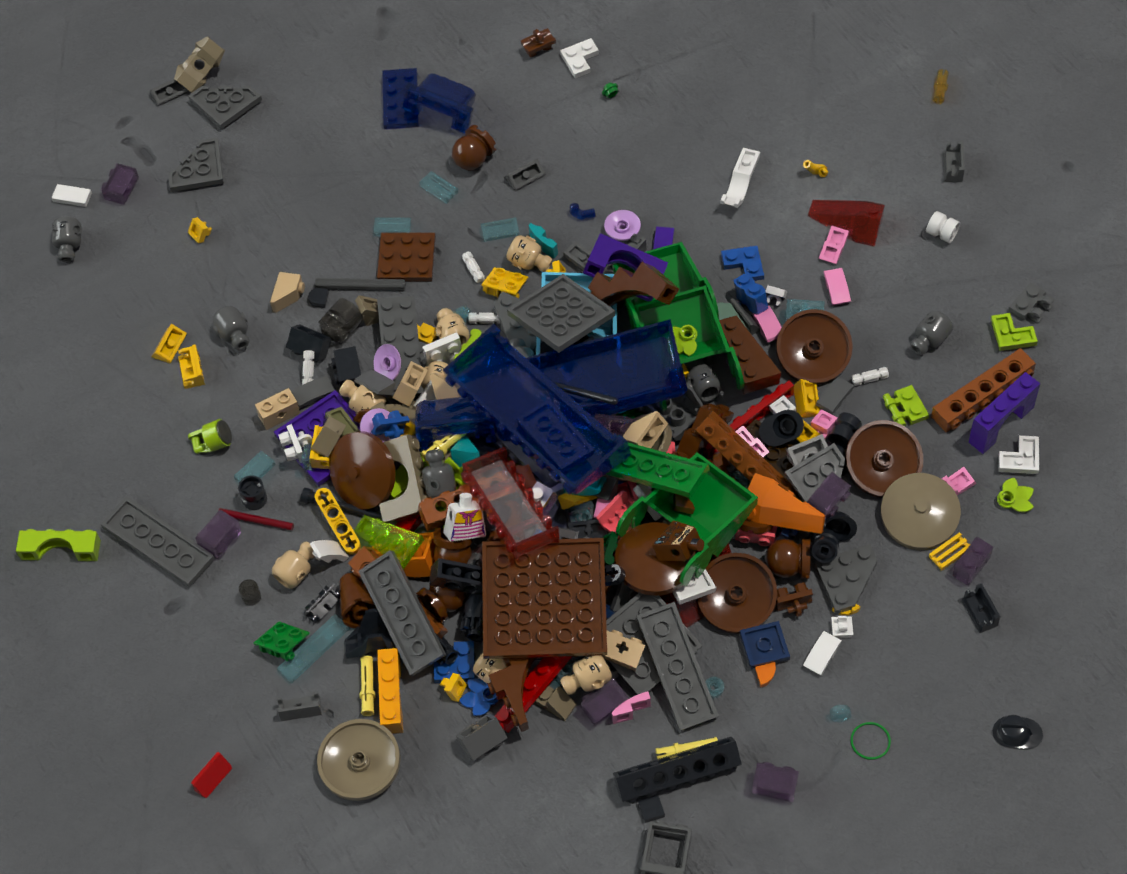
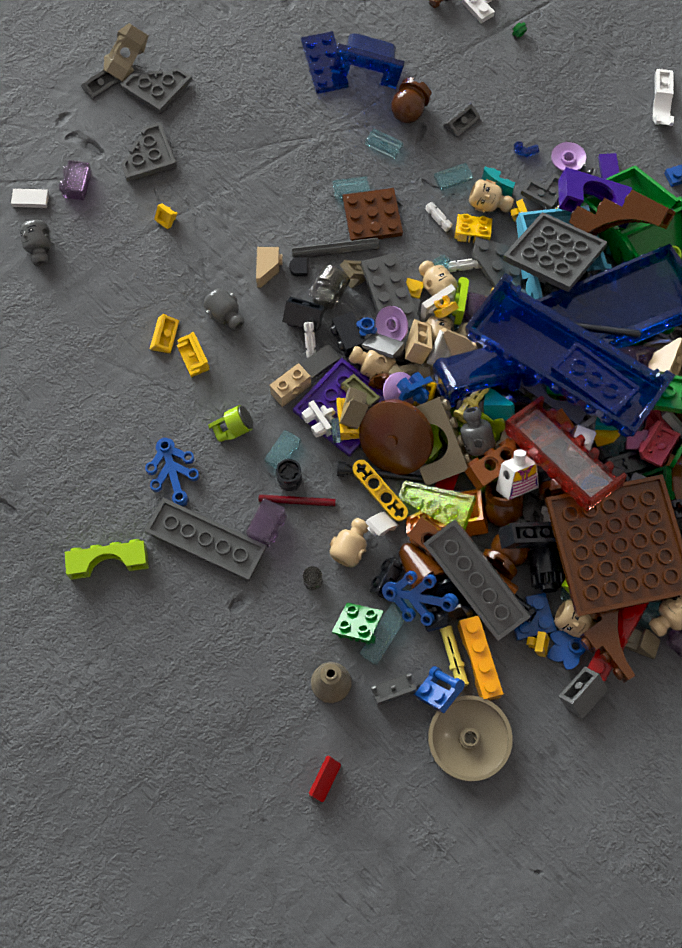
camera: 15 degrees left, 10 degrees up
(141, 472) = (171, 468): none -> blue plant
(241, 688) = (334, 688): none -> dark tan cone
(322, 616) = (416, 597): none -> blue plant
(337, 715) = (436, 695): none -> blue plate
(364, 362) = (366, 322): none -> blue plate
(444, 355) = (445, 309): none -> yellow tile

